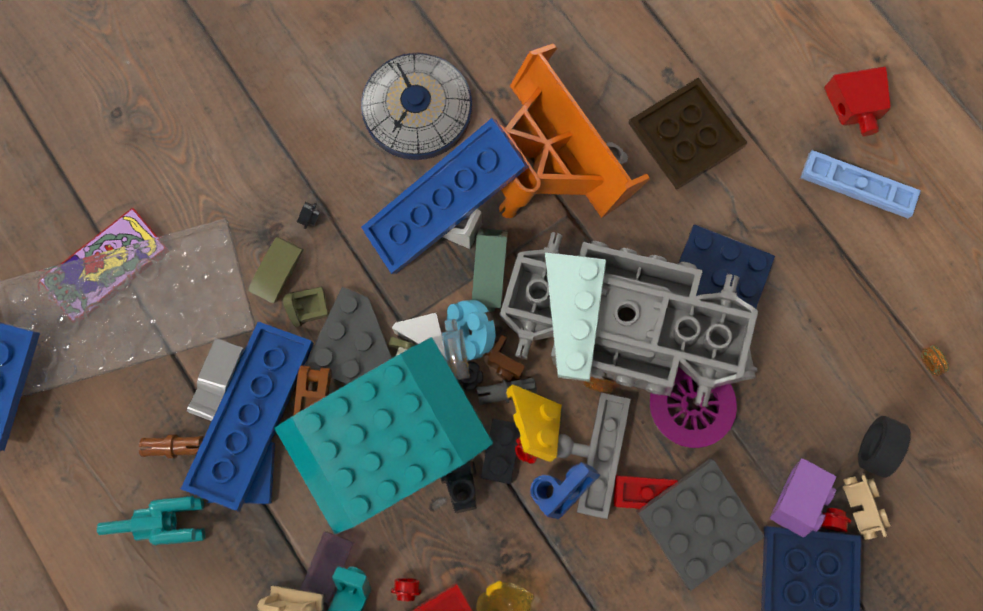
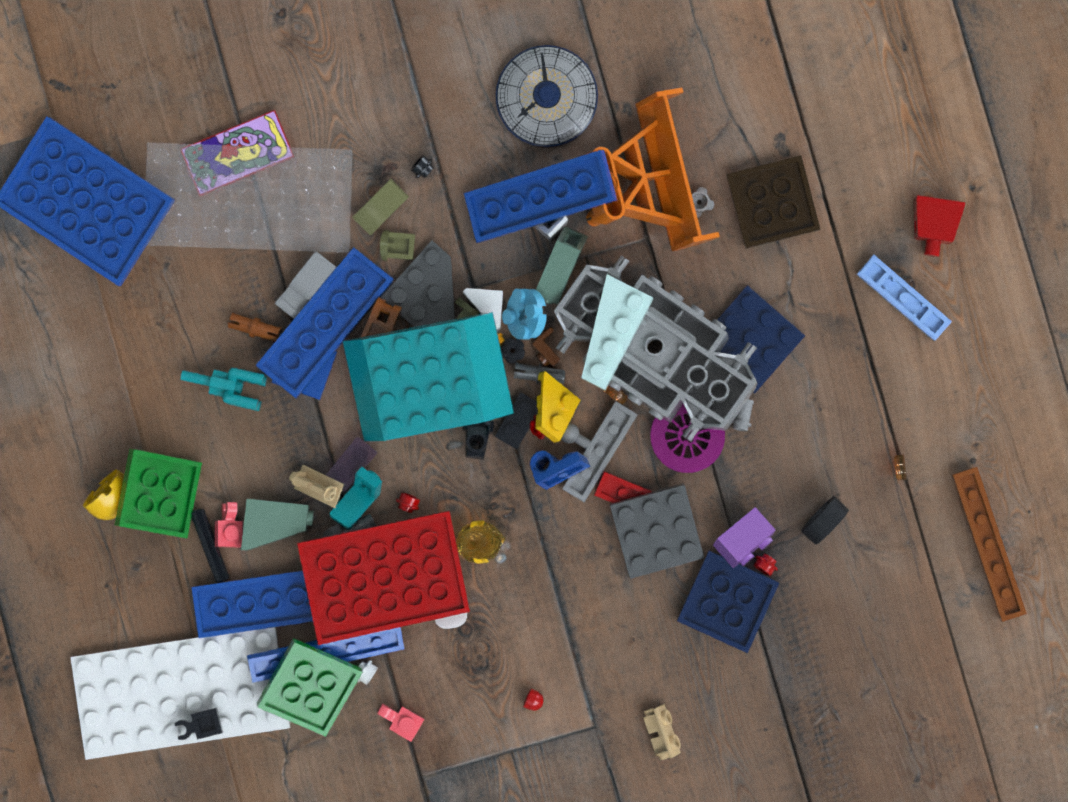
camera: 20 degrees right, 10 degrees up
(455, 349) = (508, 327): clear cylinder -> none
(870, 518) = (798, 551): tan hinge -> none

